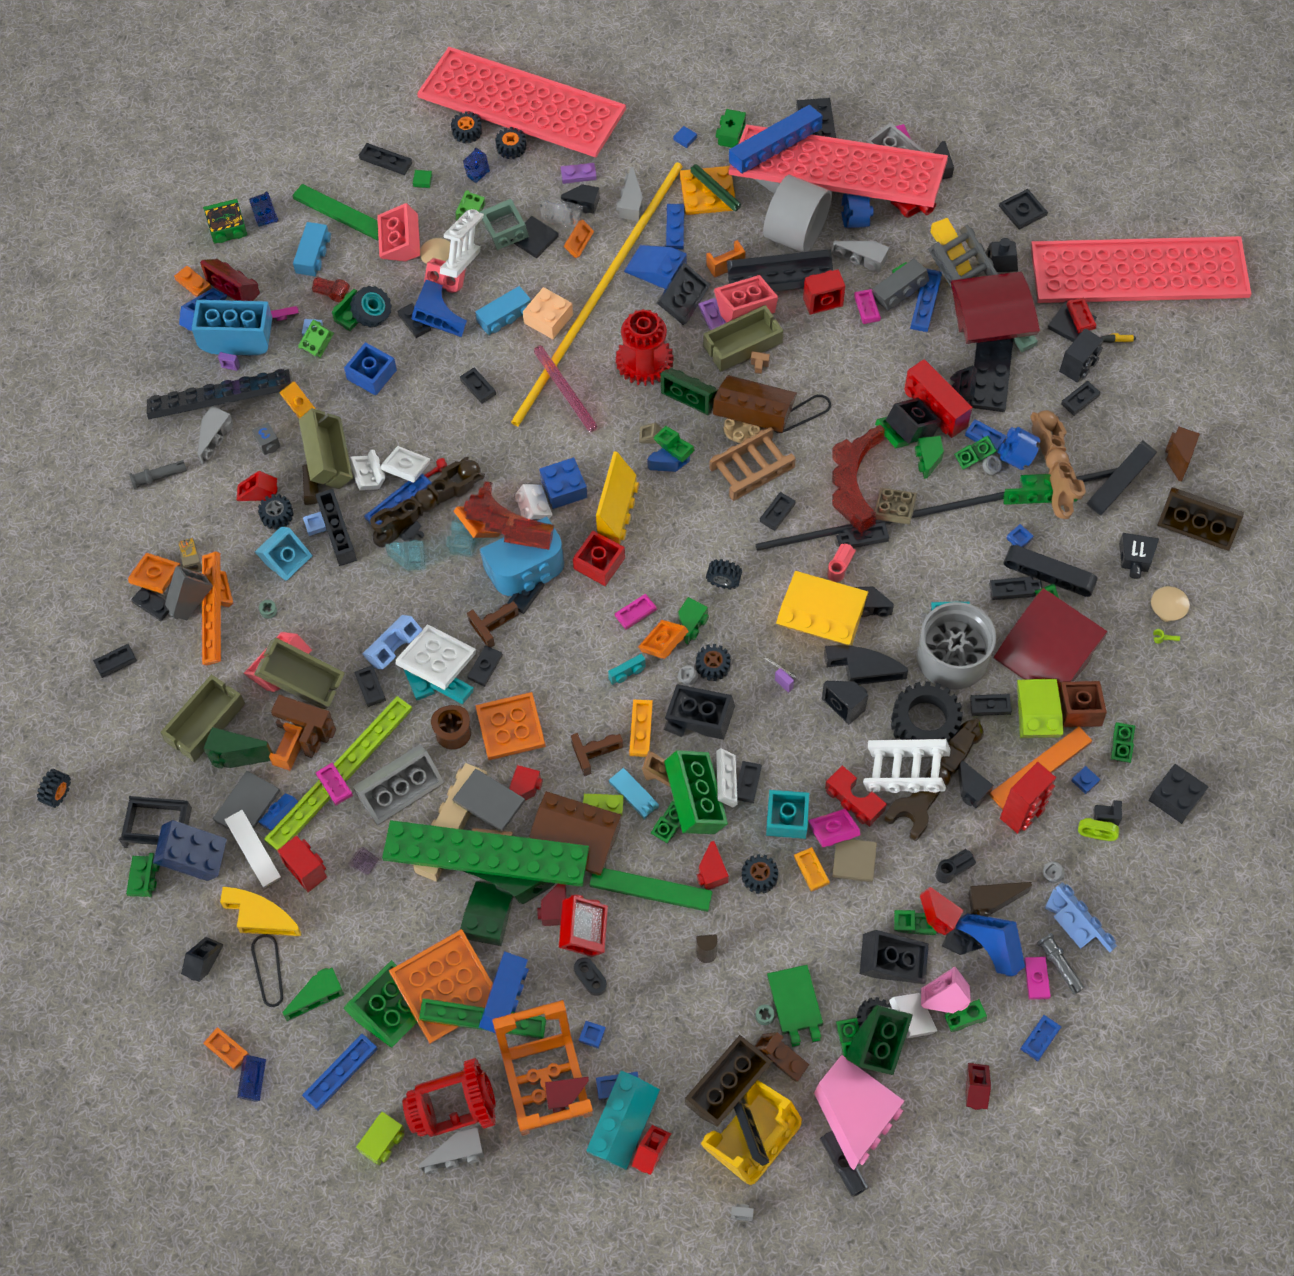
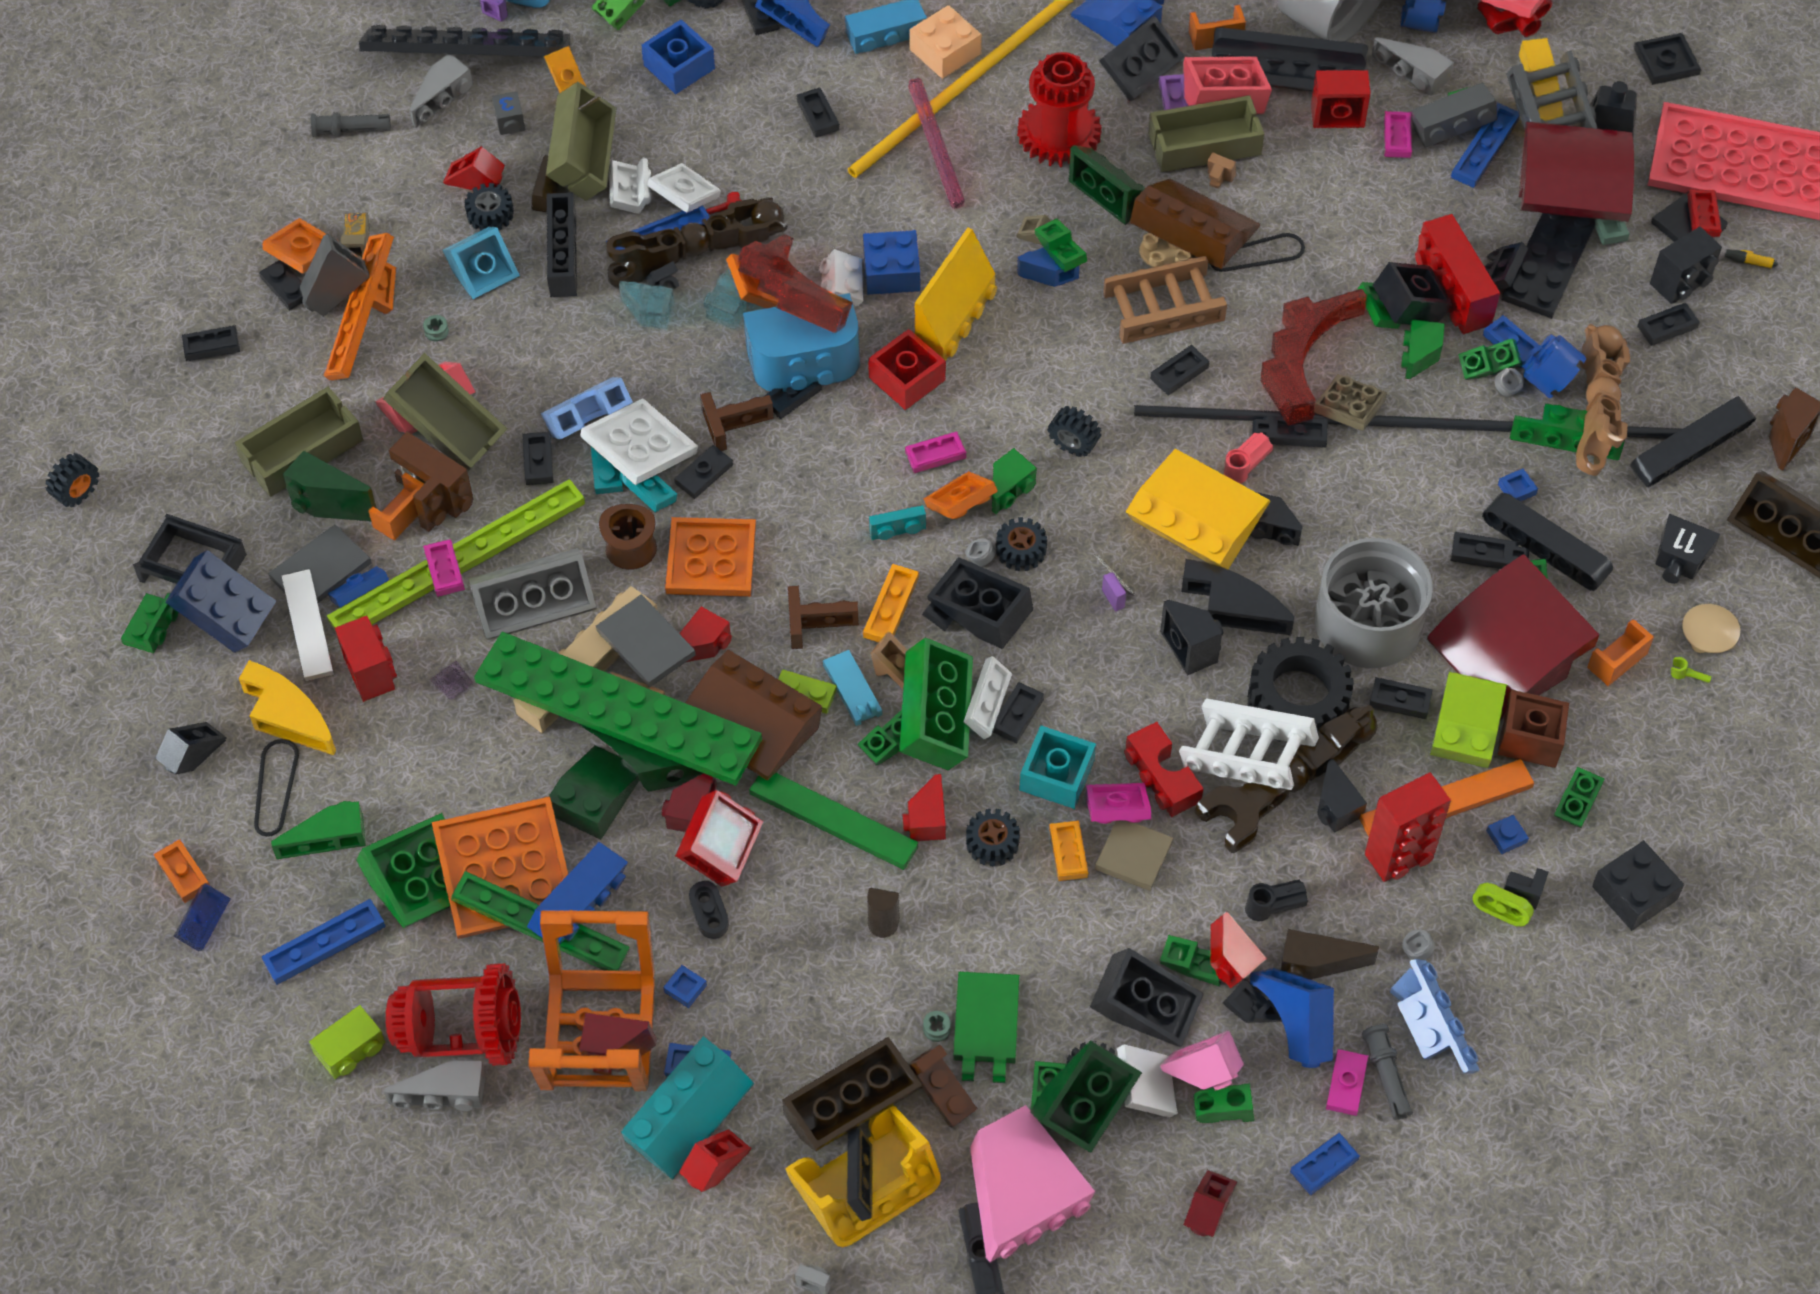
camera: 15 degrees right, 5 degrees down
(314, 523) = (534, 235): light blue plate -> none
(1119, 636) = (1621, 654): none -> orange panel

